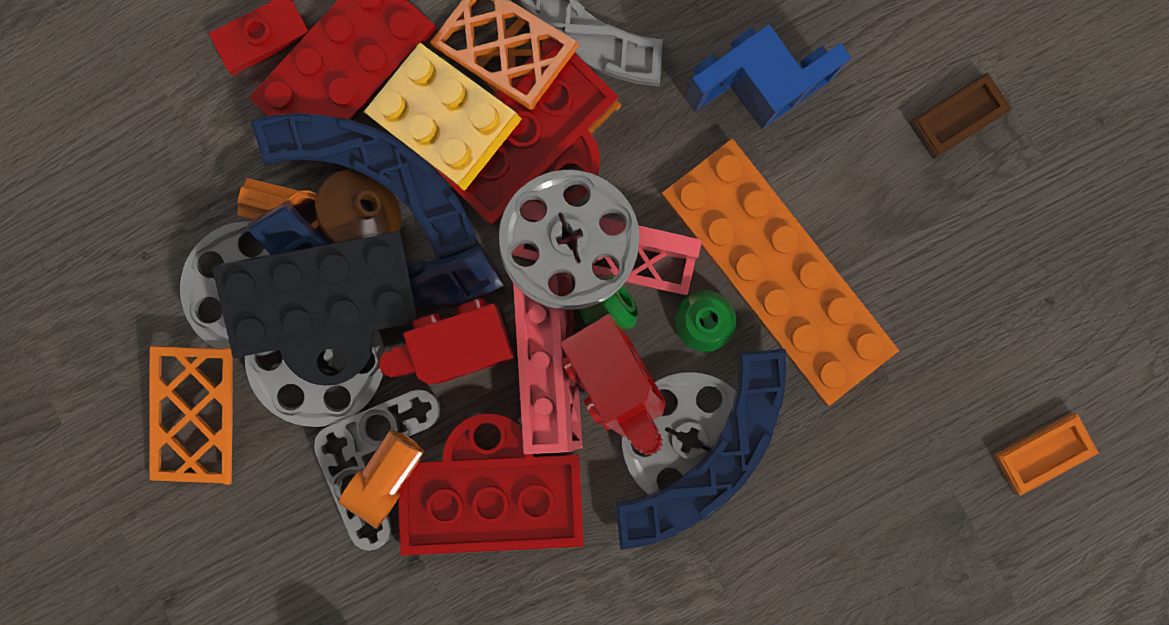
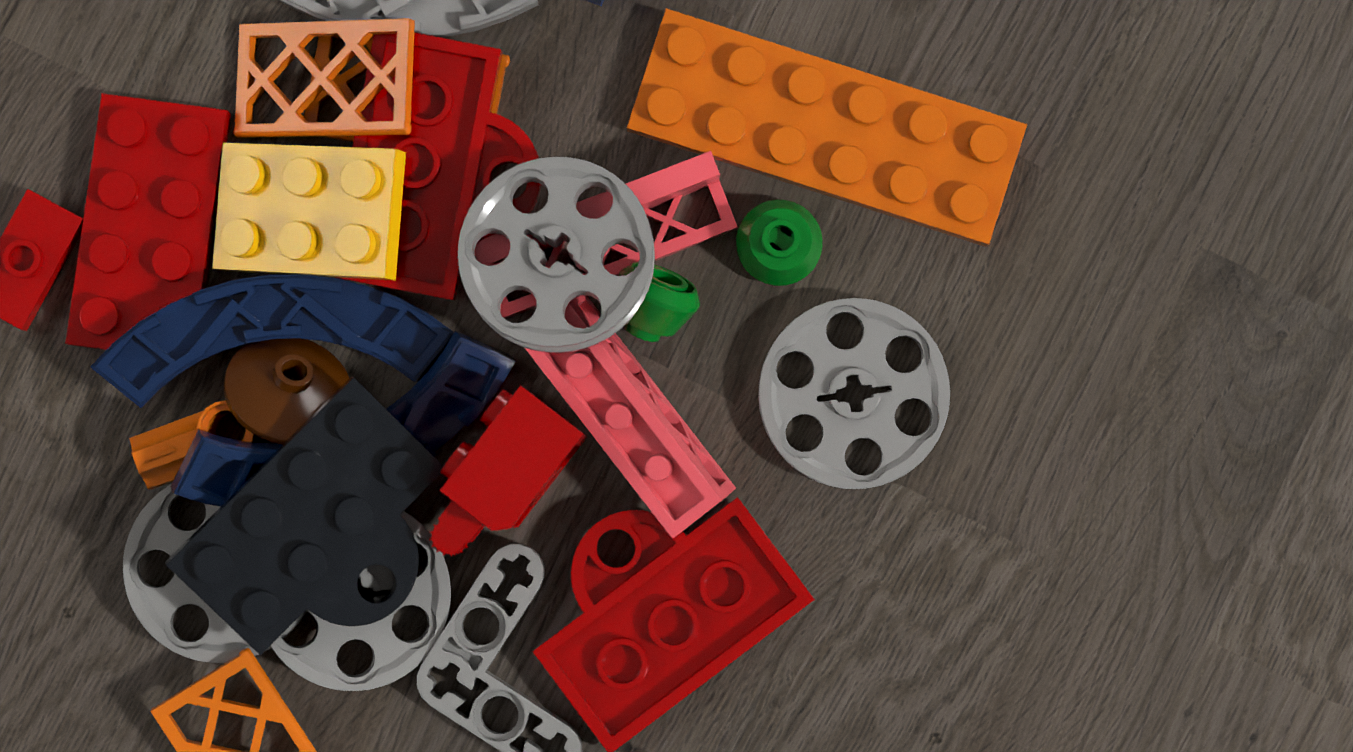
camera: 30 degrees left, 0 degrees up
(376, 487) = (527, 696): orange piece -> none
(617, 383) = (725, 381): red hinge -> none
(723, 467) = (914, 399): dark blue tile -> none
(1046, 454) = (1278, 129): orange tile -> none

